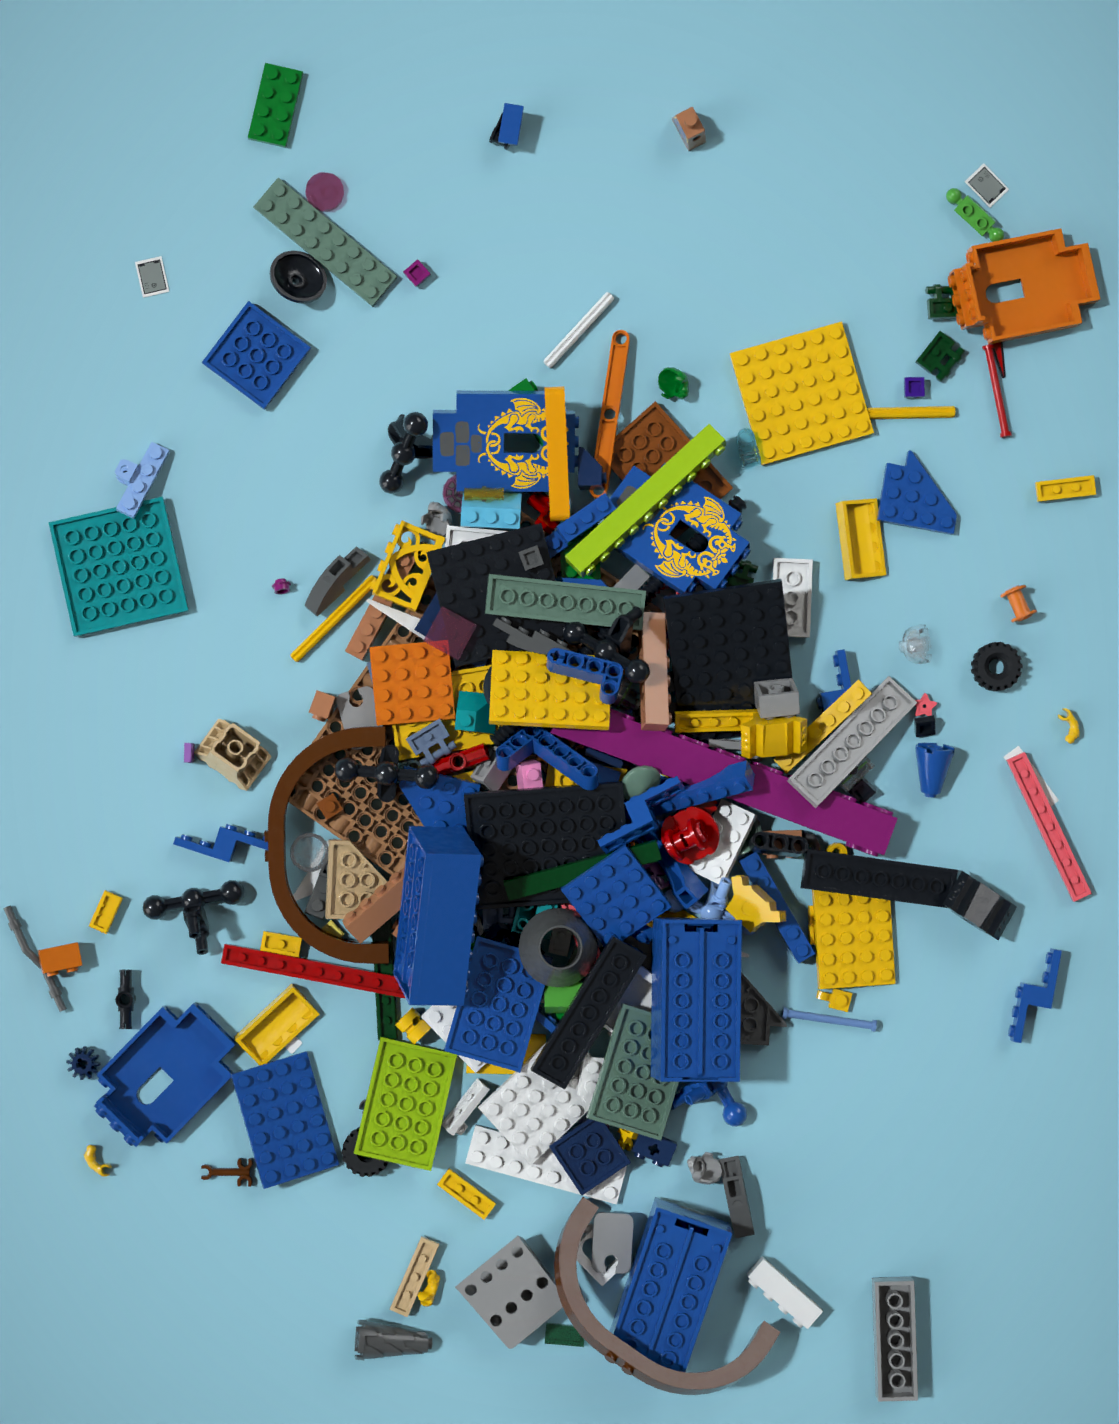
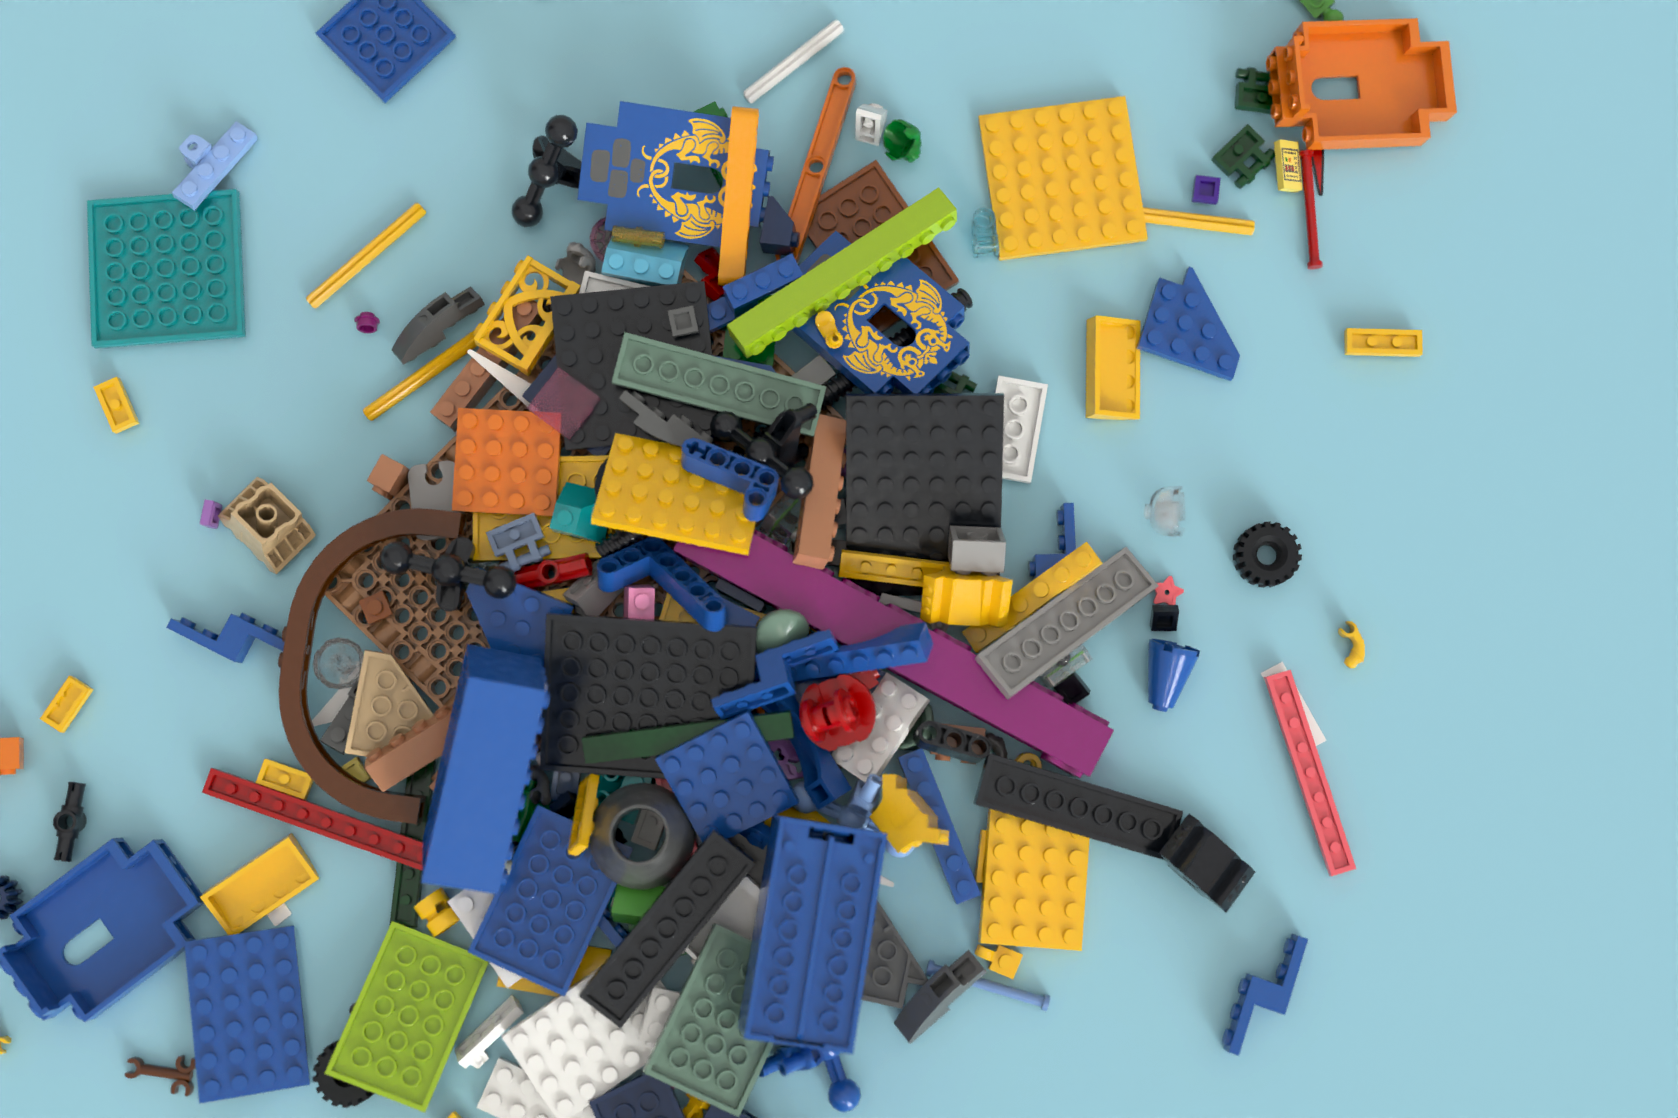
camera: 15 degrees right, 5 degrees down
(100, 678) = (116, 405): none -> yellow plate
(194, 914) = (175, 721): black connector -> none
(271, 533) = (365, 255): none -> yellow axle
(513, 938) = (582, 821): none -> yellow plate
(639, 544) = (826, 325): none -> yellow piece
(647, 372) = (870, 123): none -> white slope
(792, 1032) = (937, 994): none -> dark grey slope
(975, 359) = (1288, 166): none -> light yellow tile
(1018, 603) = (1305, 478): orange hose -> none

